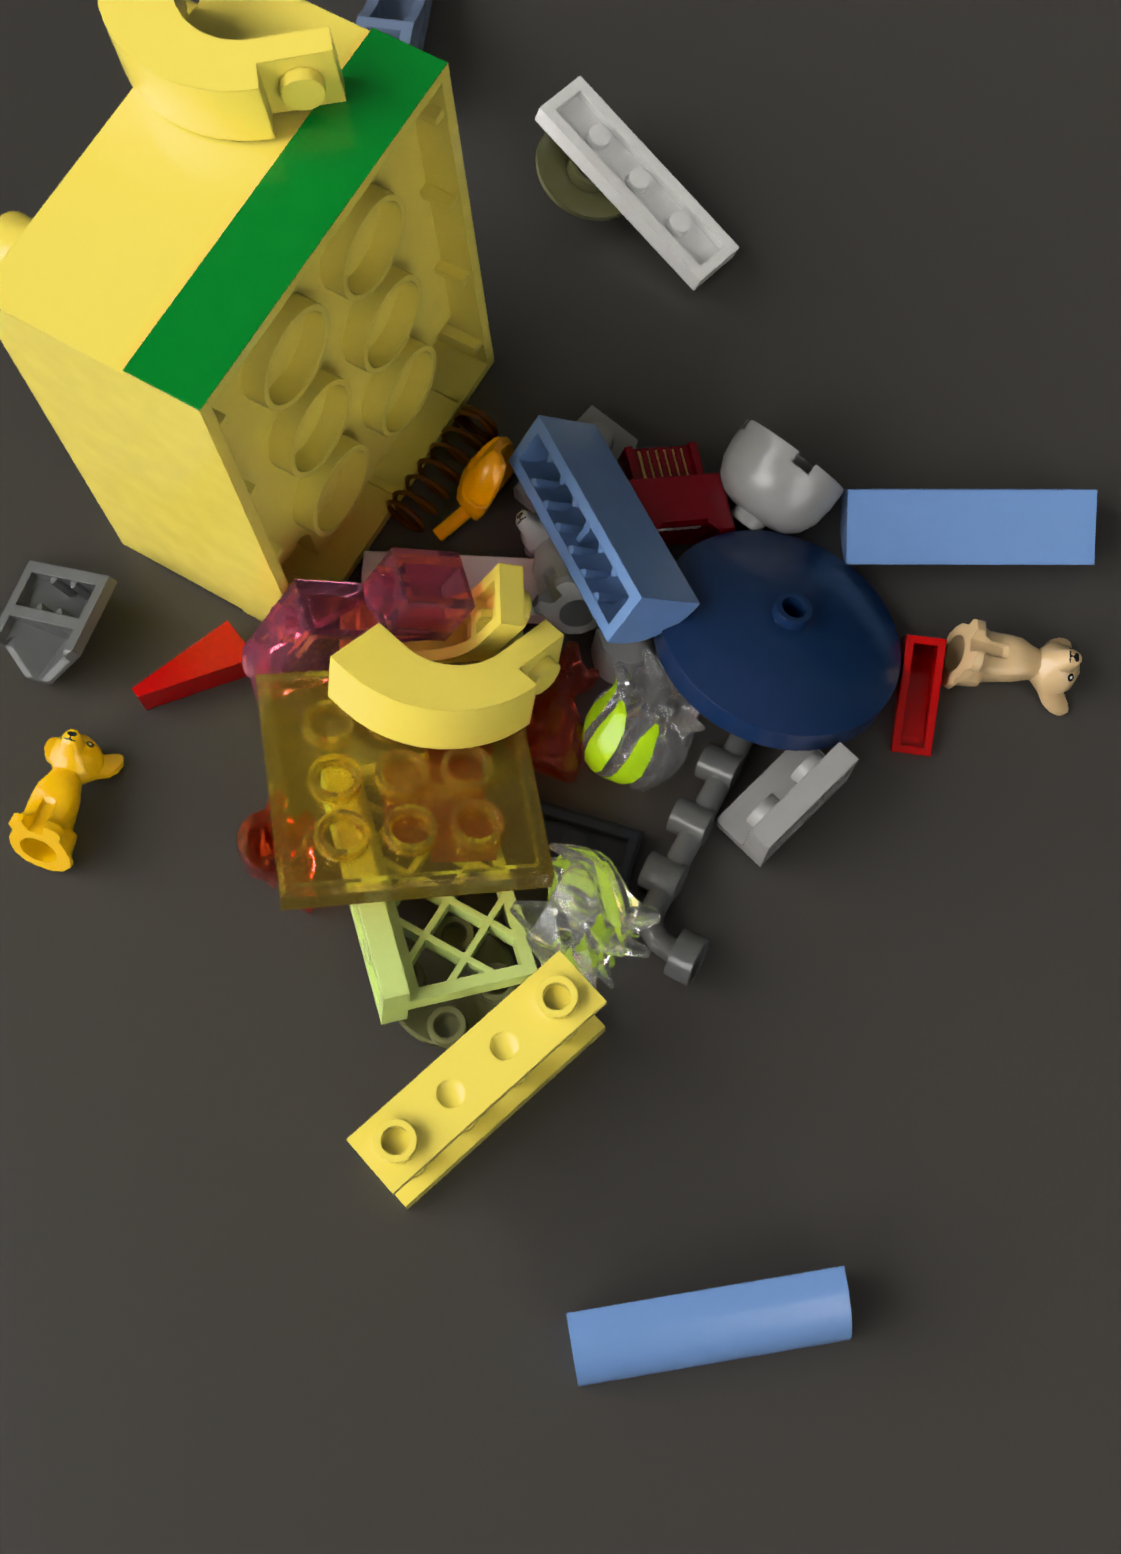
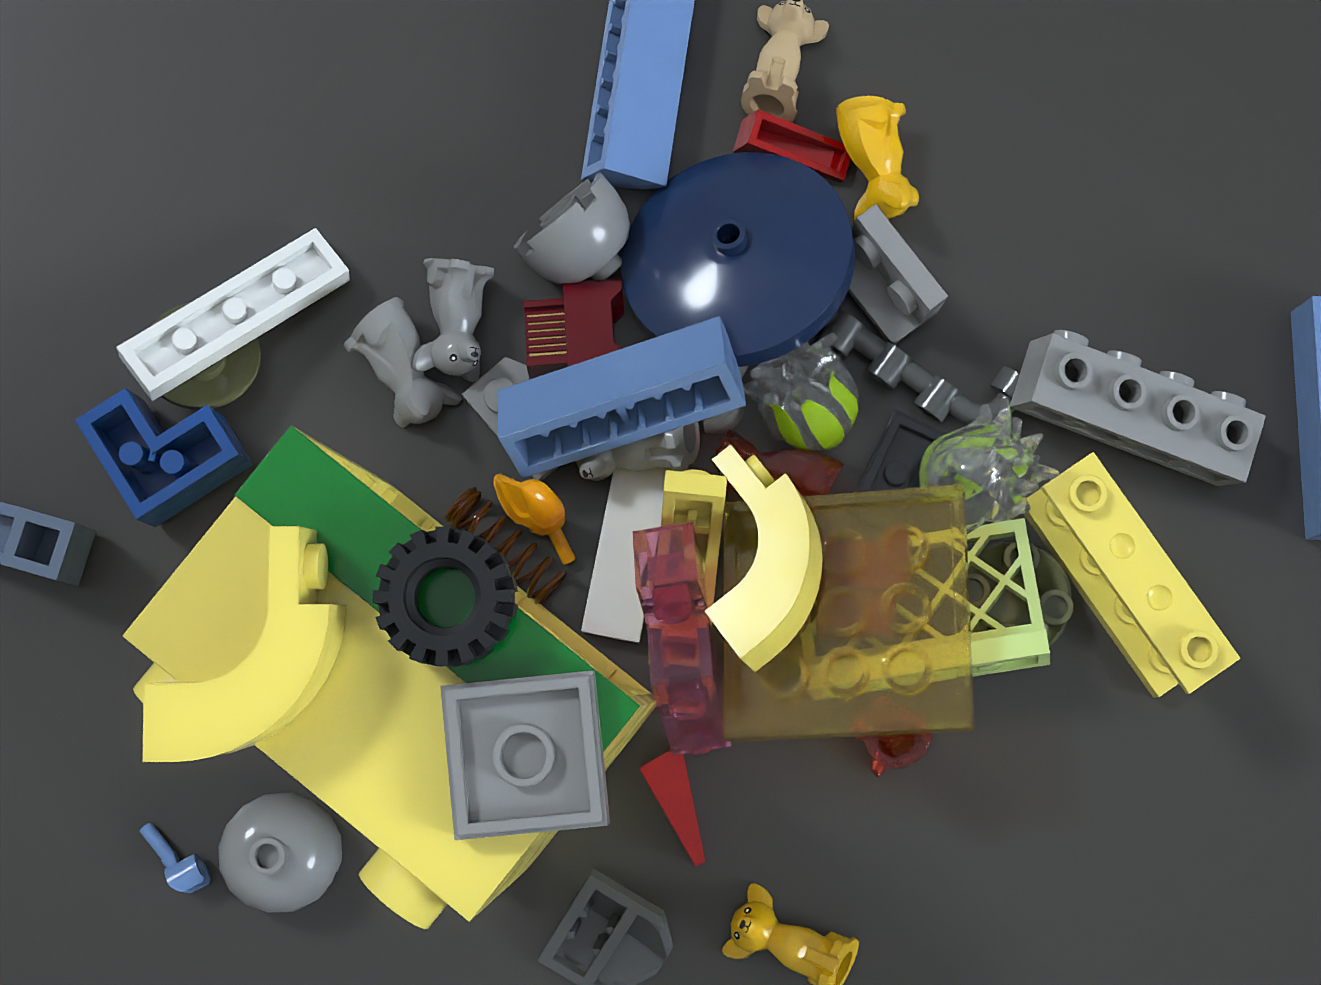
camera: 80 degrees left, 10 degrees up
(138, 310) = (525, 755): none -> light grey tile
(276, 171) = (400, 588): none -> black tyre
(494, 126) = (160, 469): none -> blue brick
(624, 331) = (389, 345): none -> light grey animal
(677, 385) = (457, 307): none -> light grey animal
(679, 1086) = (1138, 409): none -> light grey brick
(934, 766) = (874, 145): none -> yellow animal

